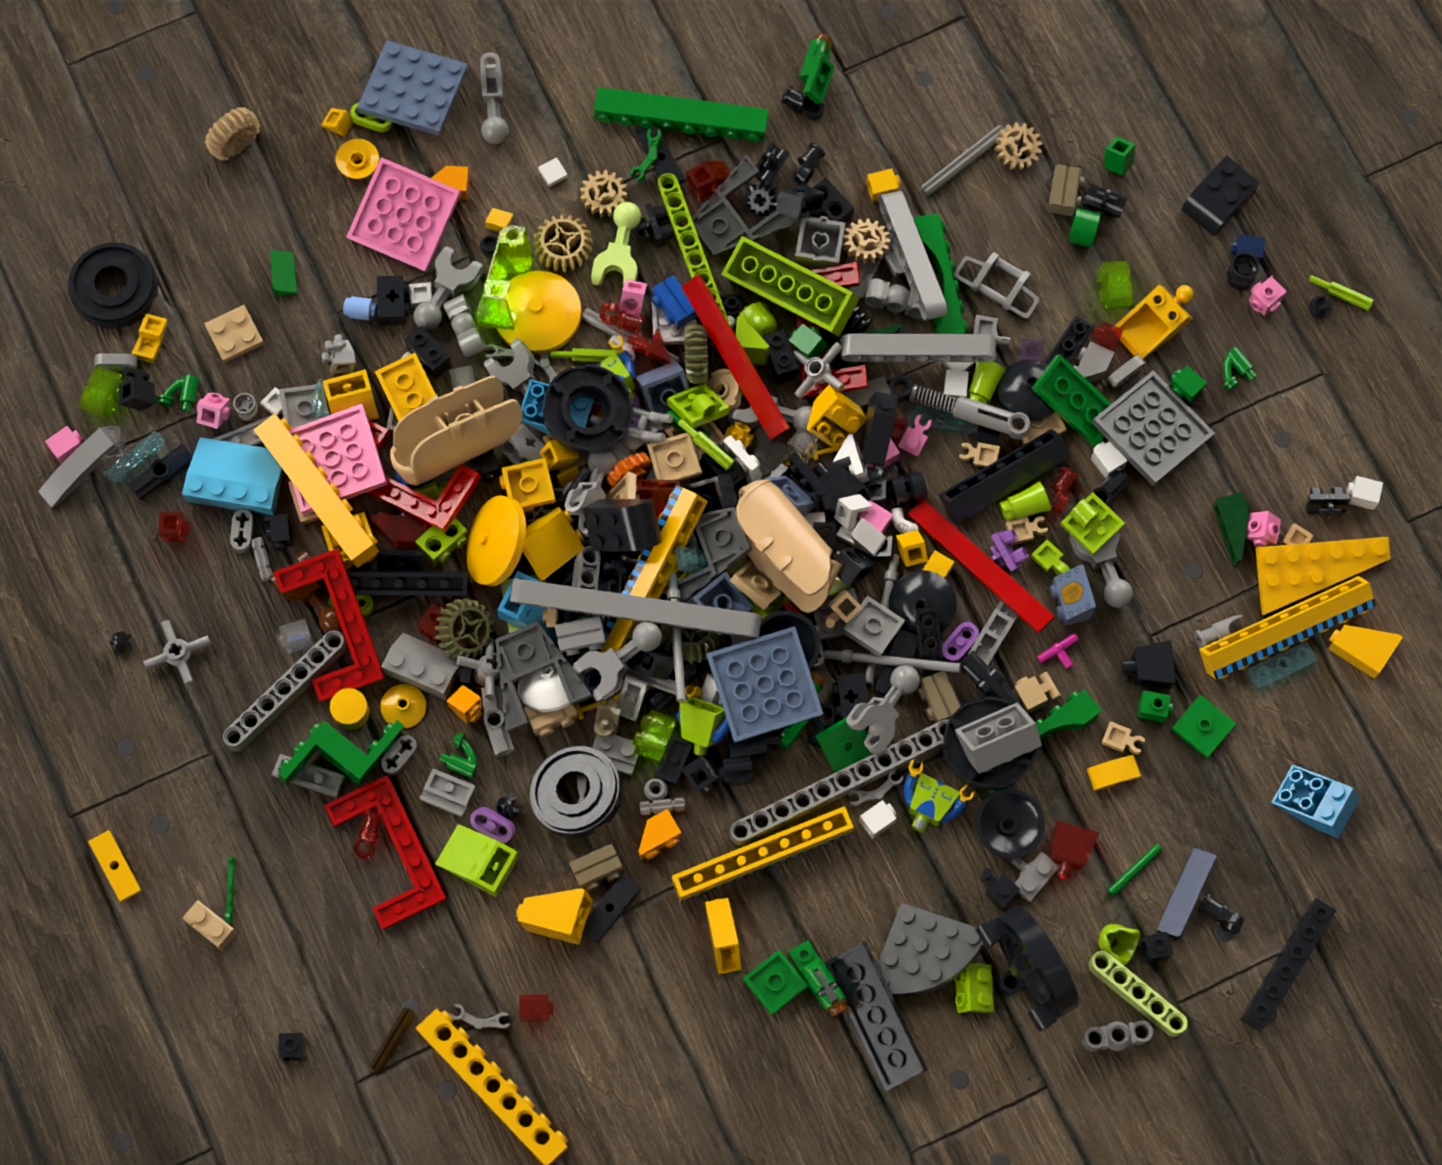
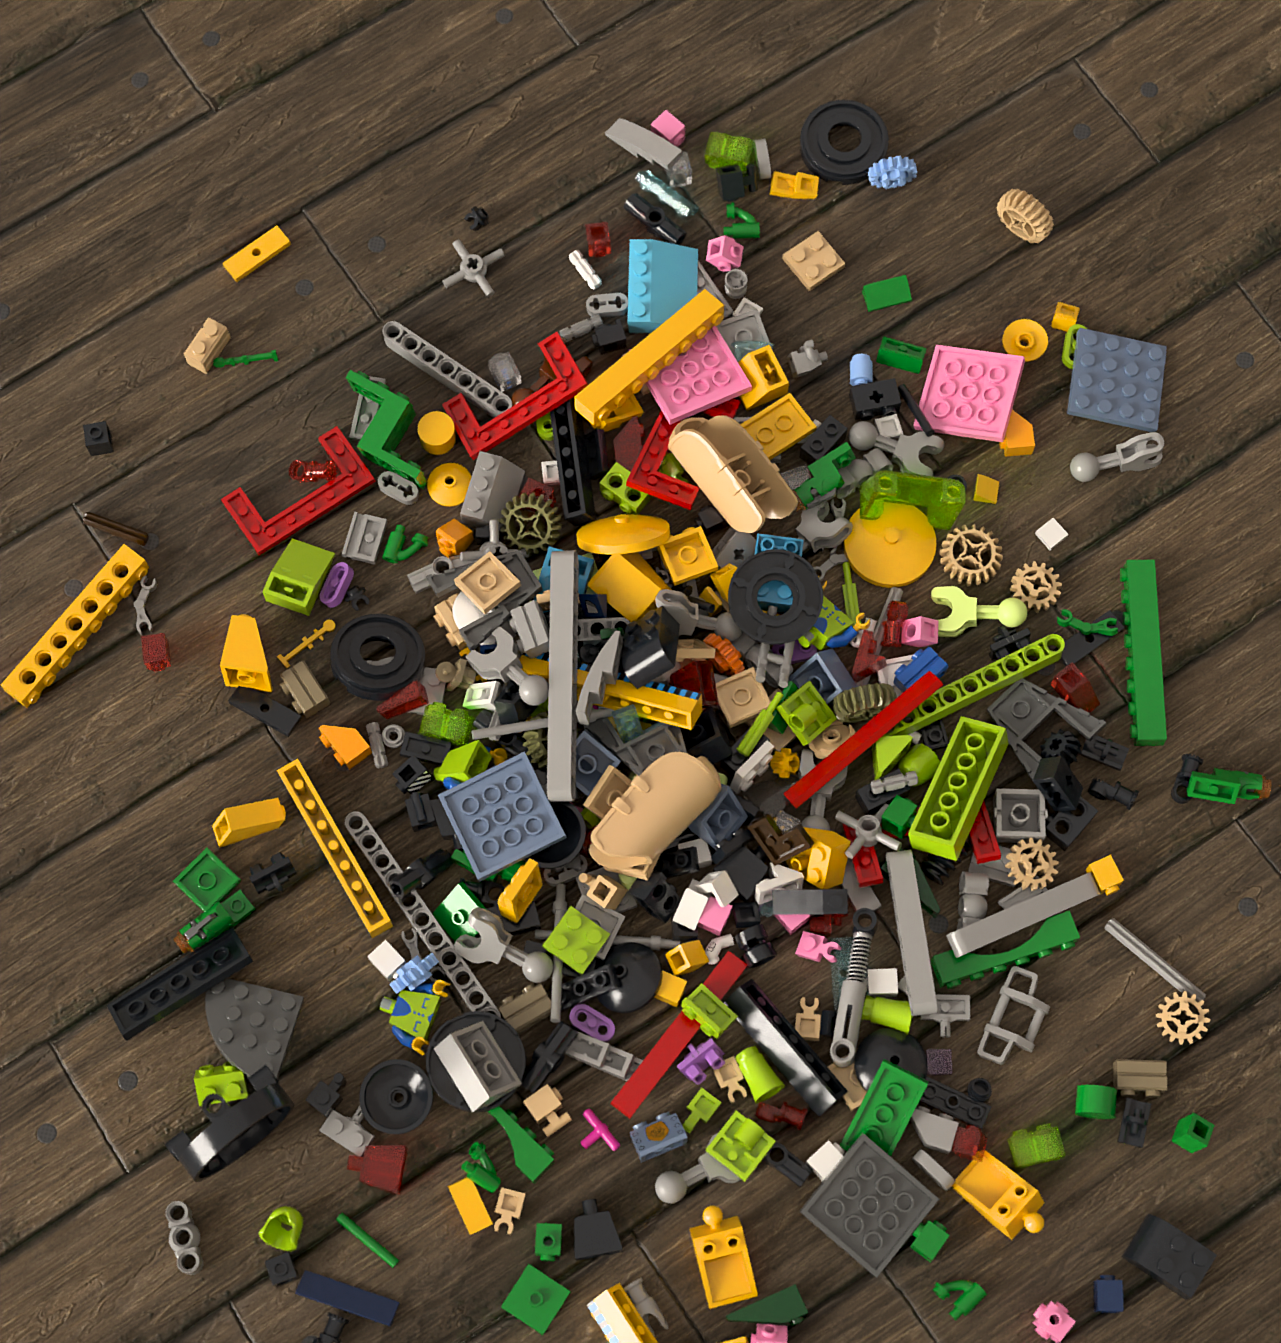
camera: 85 degrees right, 0 degrees up
(161, 242) = (892, 172): none -> light blue gear
(199, 546) = (585, 269): none -> white axle
(348, 271) = (901, 355): none -> green slope
(410, 606) = (550, 473): none -> white tile
(412, 264) = (915, 409): none -> black bar
(470, 351) = (825, 478): none -> green plate
(527, 669) = (487, 582): none -> tan plate
(531, 840) = (328, 626): none -> yellow piece
(563, 575) = (594, 605): none -> dark blue slope
(597, 564) = (608, 632): none -> dark green tile
(624, 765) = (405, 700): none -> clear red slope
(641, 568) = (602, 672): none -> light grey slope
(774, 909) = (272, 876): none -> black hips
(778, 339) = (894, 782): none -> light grey axle
(801, 774) = (420, 873): none -> black piece
(823, 445) = (779, 845): none -> dark brown plate
(831, 677) = (521, 891): none -> yellow plate
(886, 639) = (576, 940): none -> lime plate
(897, 790) = (414, 973): none -> light blue gear
(966, 534) = (708, 1011): none -> lime bracket
(1060, 322) = (979, 1090): none -> black plate
(1087, 757) = (482, 1175): none -> green plant
(1149, 995) = (219, 1261): yellowish green beam -> none
(1185, 559) = (723, 1259): none -> yellow slope
(1242, 271) = (1079, 1290): black wheel -> none

